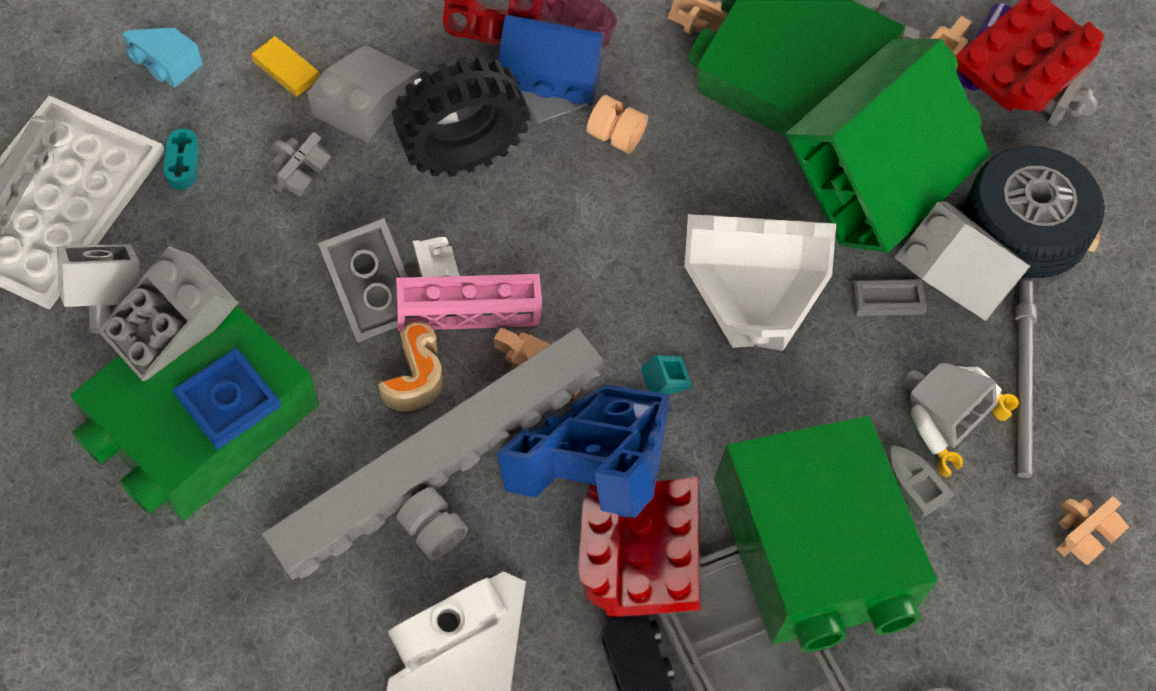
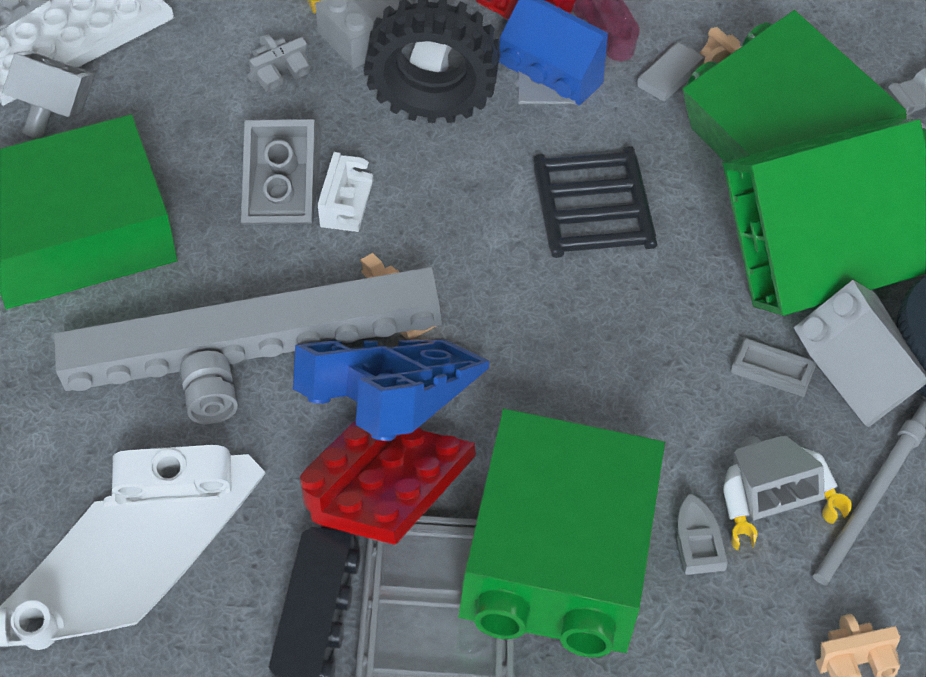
camera: 30 degrees right, 10 degrees down
(167, 313) = (77, 120): light grey slope -> none
(188, 159) = (187, 29): teal beam -> none
(226, 398) = (83, 206): blue tile -> none
(426, 377) = (281, 267): tan animal -> none
(469, 299) = (353, 214): bright pink fence -> none
(613, 122) = (587, 123): light nougat wheel -> none
(634, 227) = (554, 218): none -> black bar
(654, 43) = (670, 71): none -> light grey tile
(666, 374) = (508, 352): teal slope -> none
(759, 273) = (647, 293): white panel -> none

